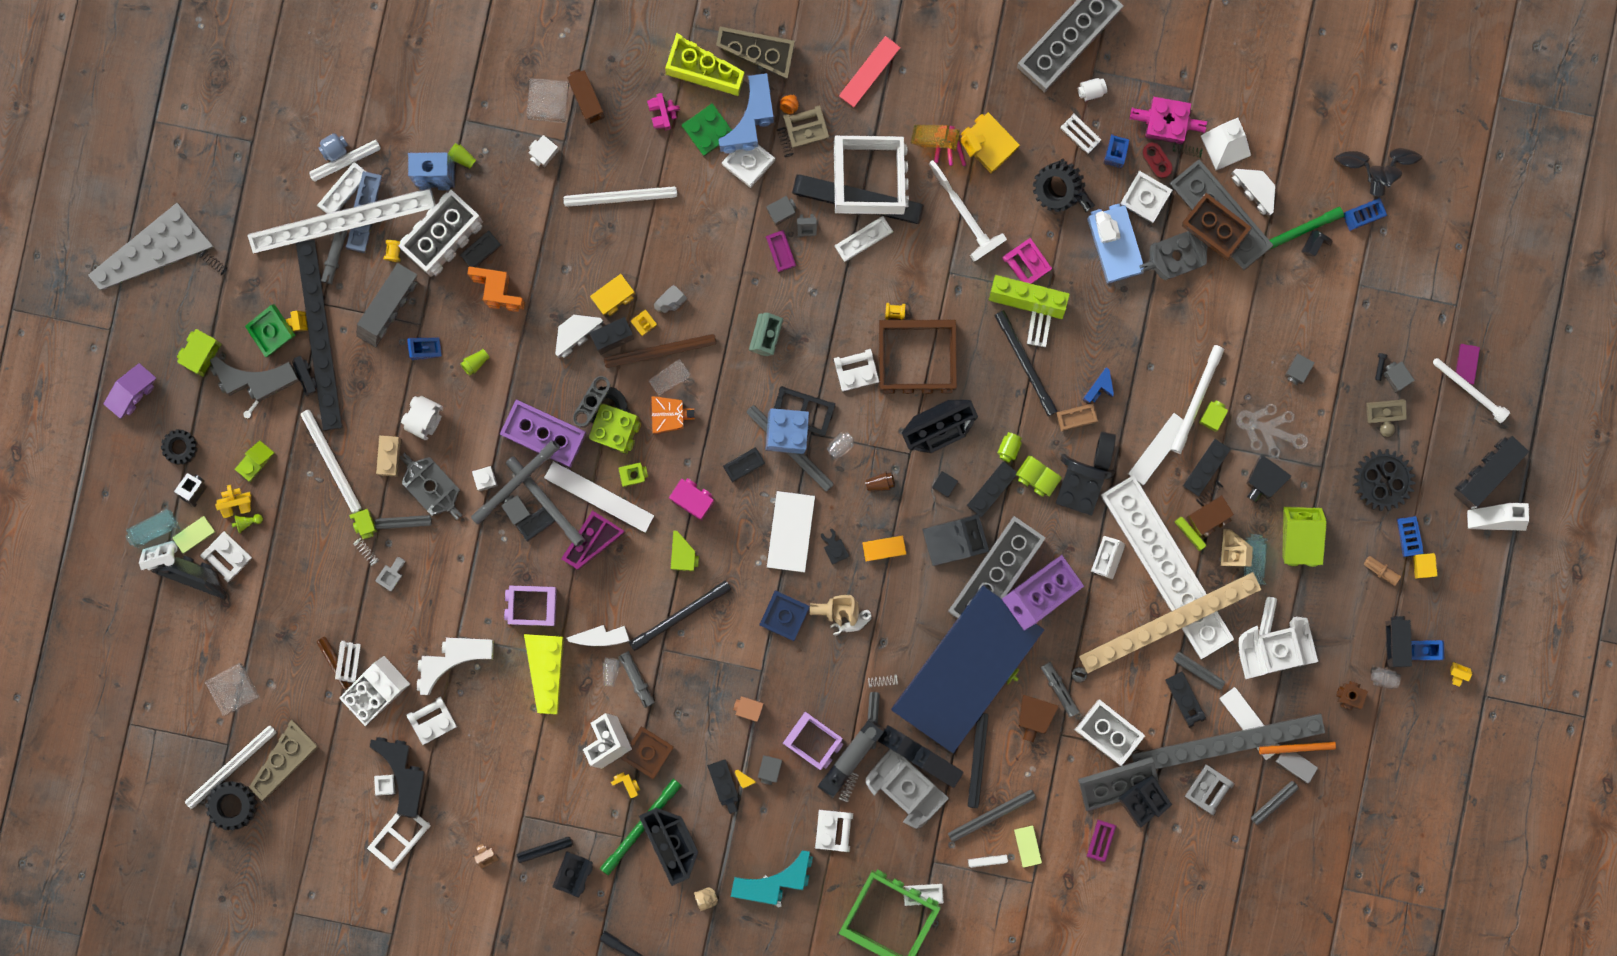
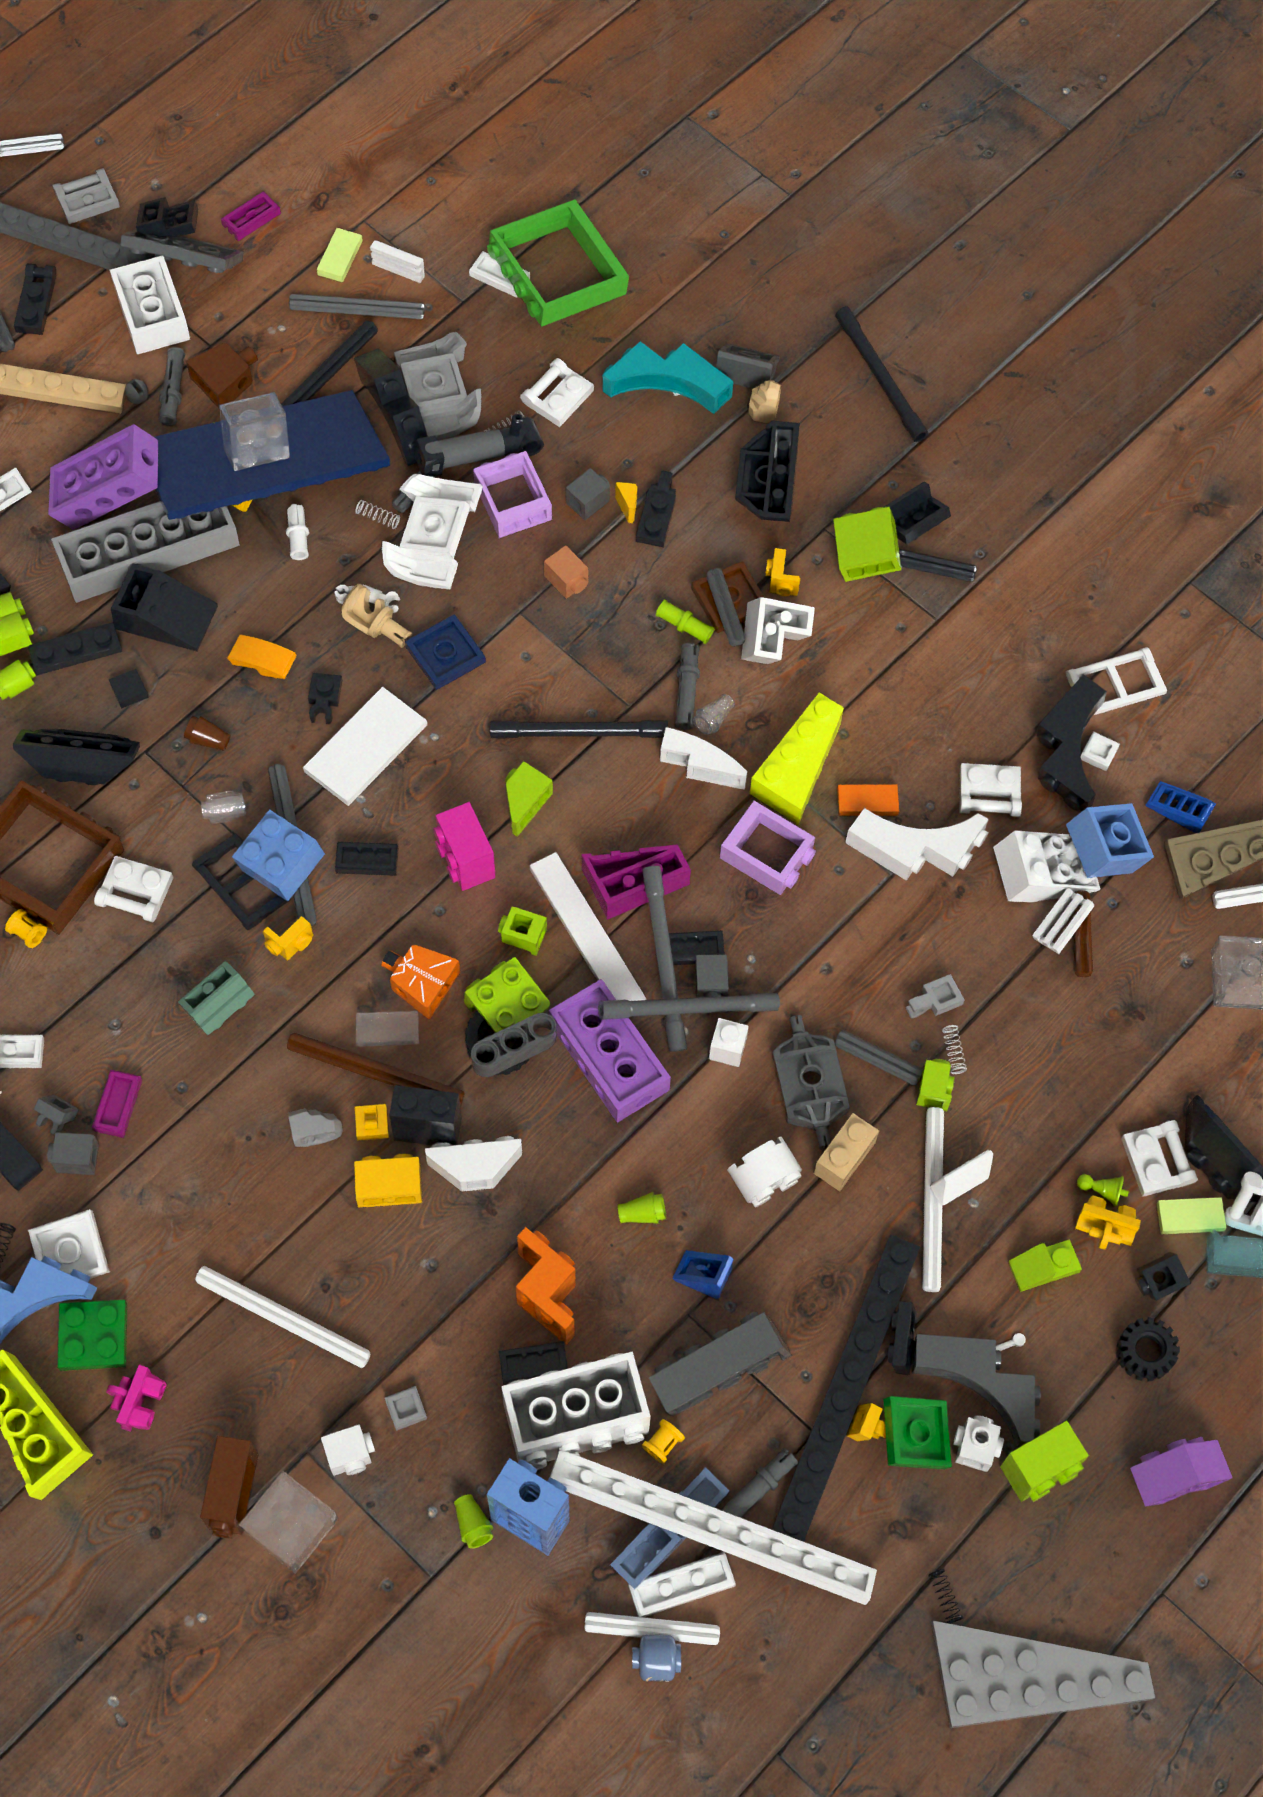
camera: 150 degrees left, 20 degrees down
(232, 339) = (977, 1454): none -> white brick
(322, 479) = (963, 1178): none -> white slope
(338, 776) = (1175, 814): none -> blue slope
(346, 722) = (1109, 840): none -> medium blue brick
(485, 856) = (1016, 594): medium nougat tile -> none
(495, 672) = (878, 799): none -> orange tile
(530, 190) = (405, 1408): none -> light grey tile
(587, 833) = (867, 544): none -> lime brick
(614, 859) = (738, 538): green piece -> none
(643, 739) = (725, 607): none -> dark grey axle
(663, 720) = (684, 621): none -> lime pin
(733, 922) = (746, 365): none -> dark grey slope
(748, 395) = (294, 939): none -> yellow bracket
(841, 687) = (431, 530): none -> white piece
(919, 639) = (297, 532): none -> white axle
(971, 668) = (254, 431): none -> clear brick

